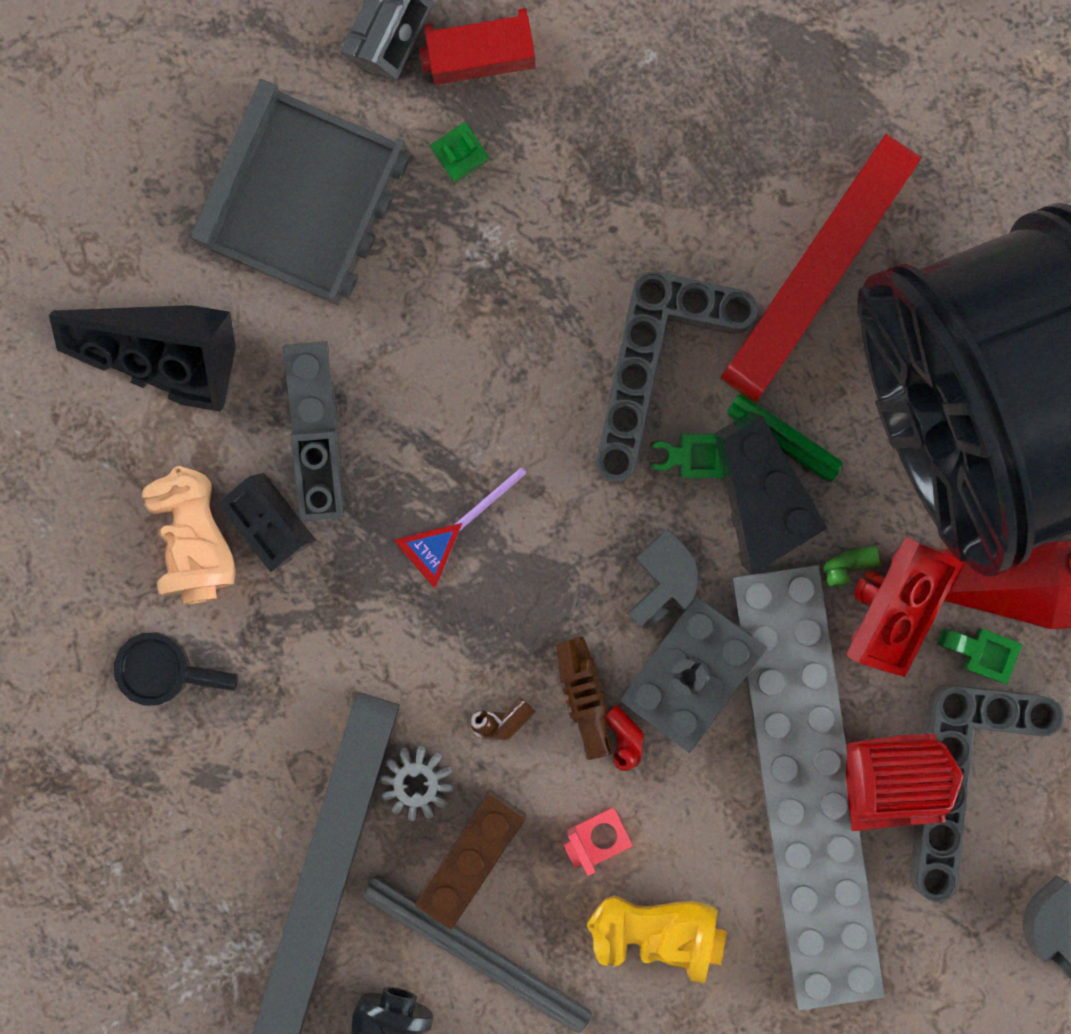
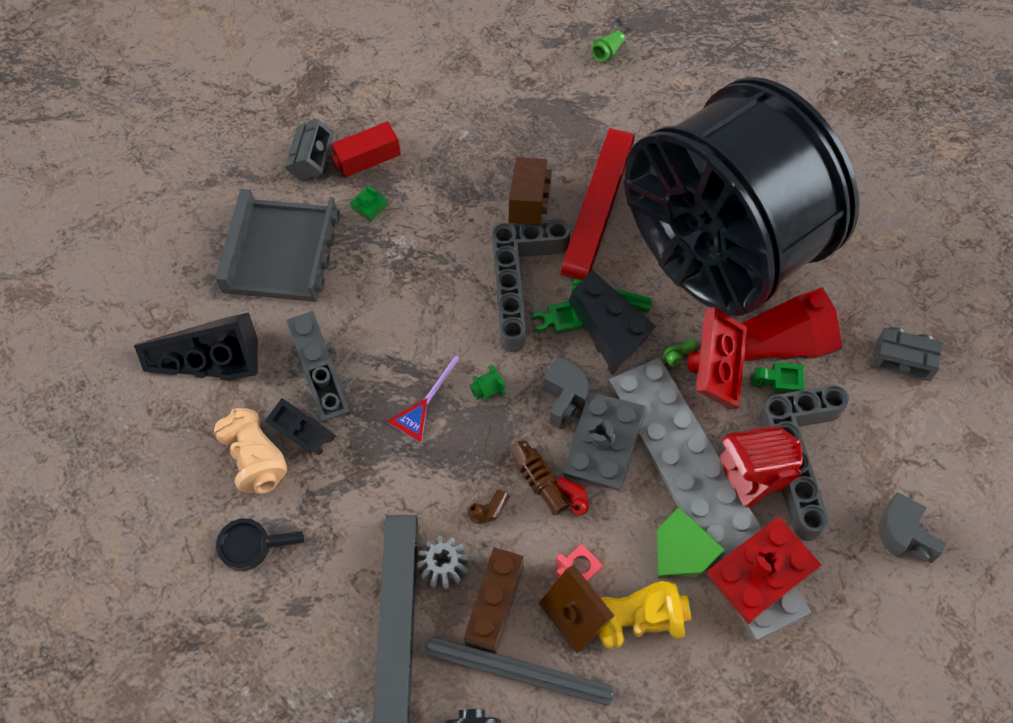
camera: 15 degrees left, 25 degrees down
(553, 535) = (487, 385): none -> green brick
(574, 908) = (576, 609): none -> reddish brown plate
(716, 224) = (529, 191): none -> reddish brown brick
(749, 863) = (684, 547): none -> bright green slope
(842, 928) = (763, 569): none -> red plate

